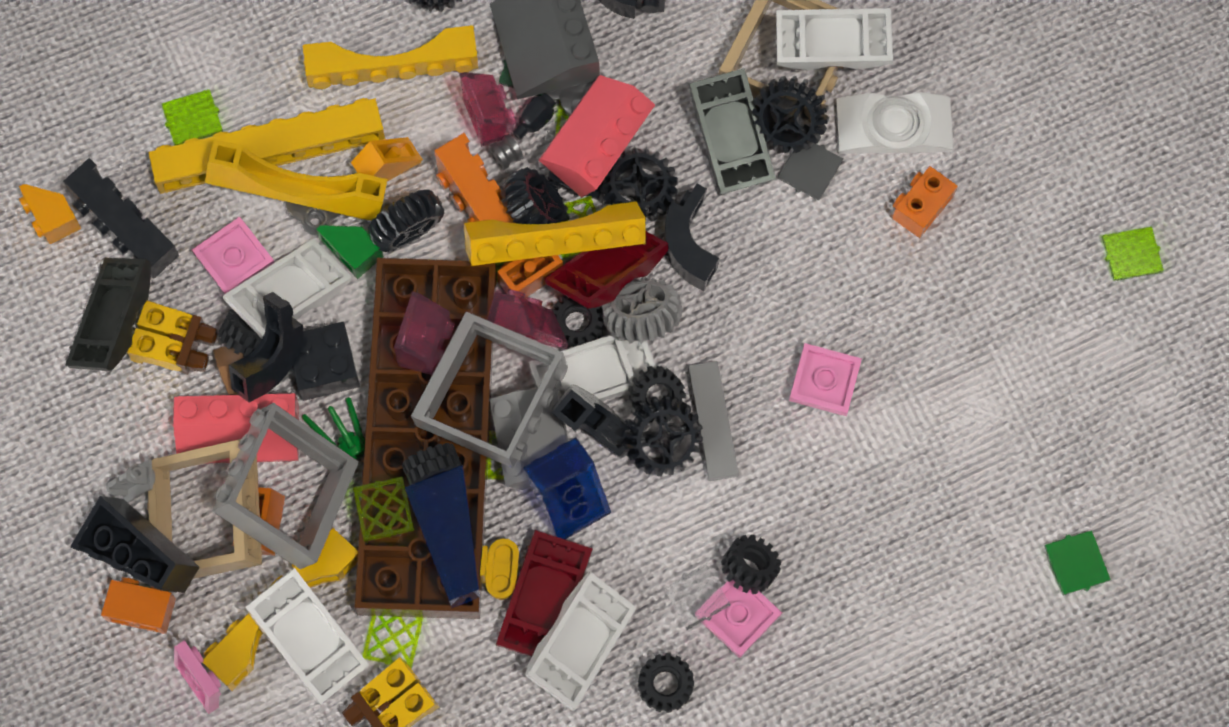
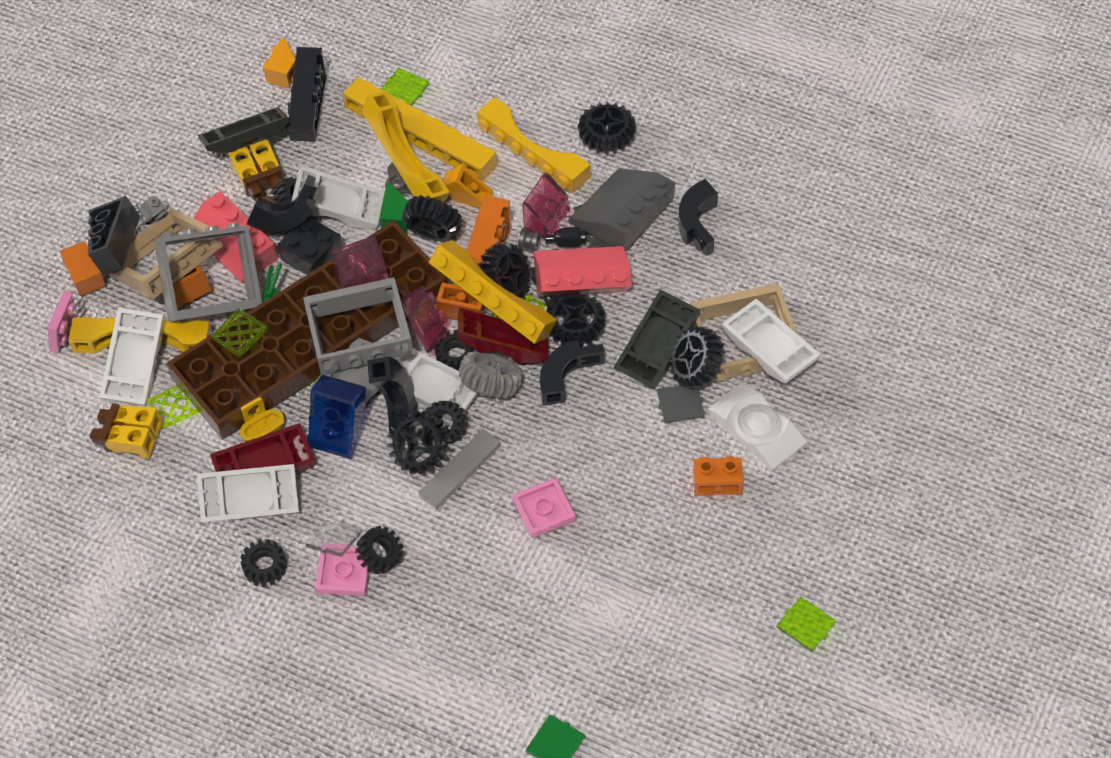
camera: 55 degrees right, 15 degrees down
(232, 255) = (337, 159): bright pink plate -> none
(430, 462) = (281, 330): black tyre -> none
(445, 523) = (248, 370): clear blue wedge -> none

